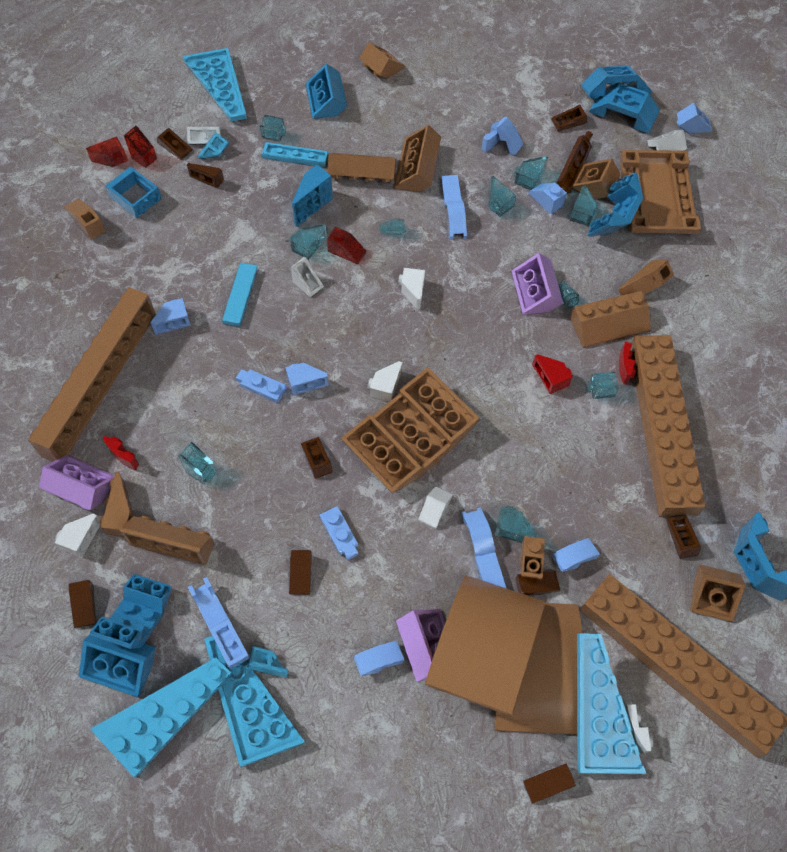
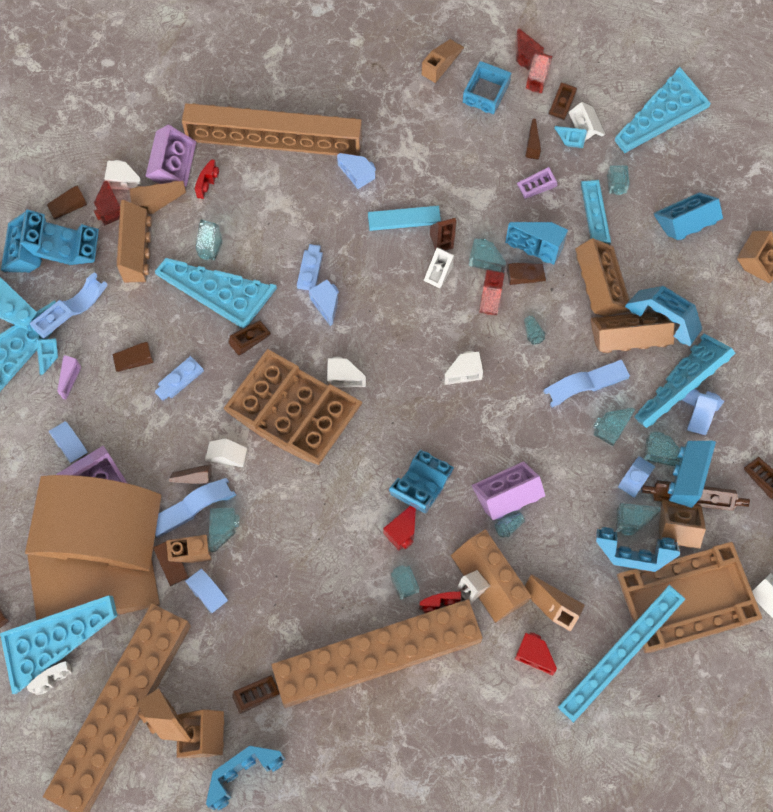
camera: 75 degrees right, 5 degrees up
(108, 558) = (106, 205): none -> clear red slope
(249, 173) = (539, 188): none -> lavender slope
(259, 467) = (222, 292): none -> medium azure wing
(274, 261) = (443, 234): none -> copper slope
(297, 641) = (68, 375): none -> lavender slope
(335, 217) = (525, 273): none -> reddish brown slope
(396, 136) = (671, 305): none -> dark azure slope
(453, 537) = (194, 475): none -> slope
(472, 133) = (685, 377): none -> medium azure wing
(514, 349) = (422, 481): none -> dark azure slope
(565, 148) = (691, 472): none -> dark azure slope
(621, 332) = (472, 586): none -> white slope
(685, 306) = (535, 653): none -> red slope
(699, 246) = (621, 653): none -> medium azure tile
(703, 616) = (162, 717): none -> medium nougat slope

